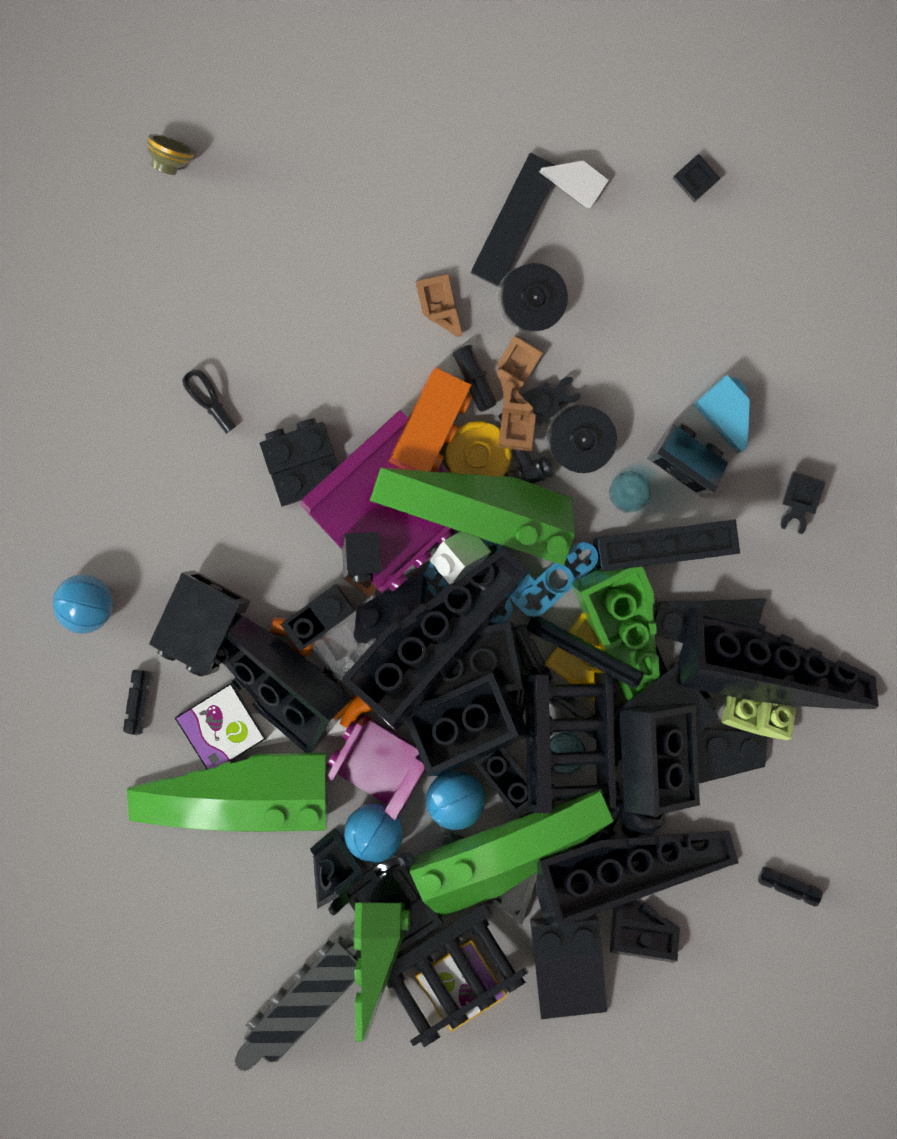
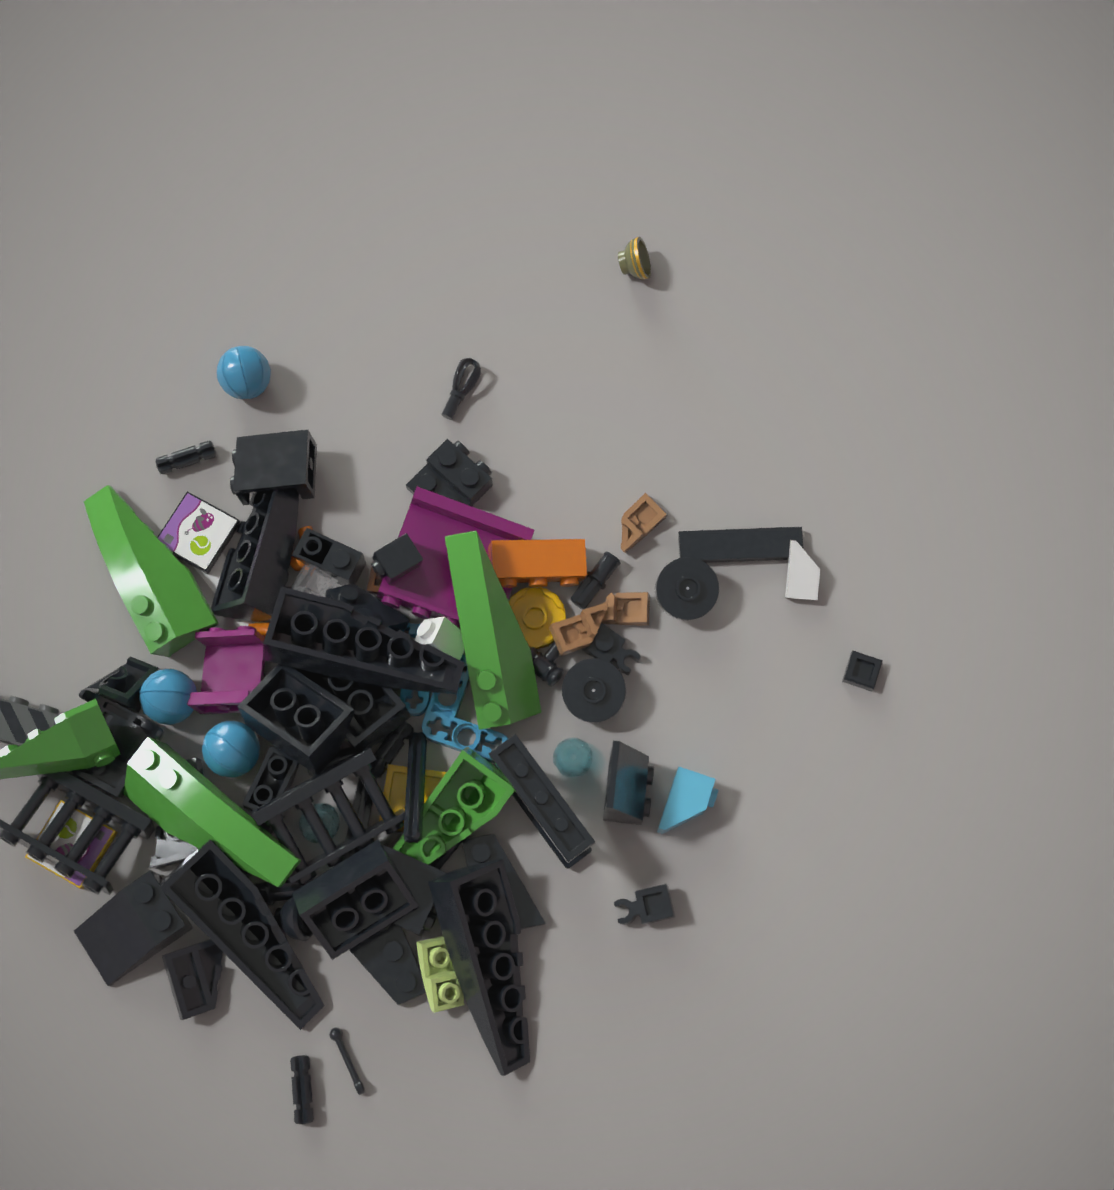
camera: 60 degrees right, 15 degrees down
(759, 833) = (336, 1035): none -> black hinge

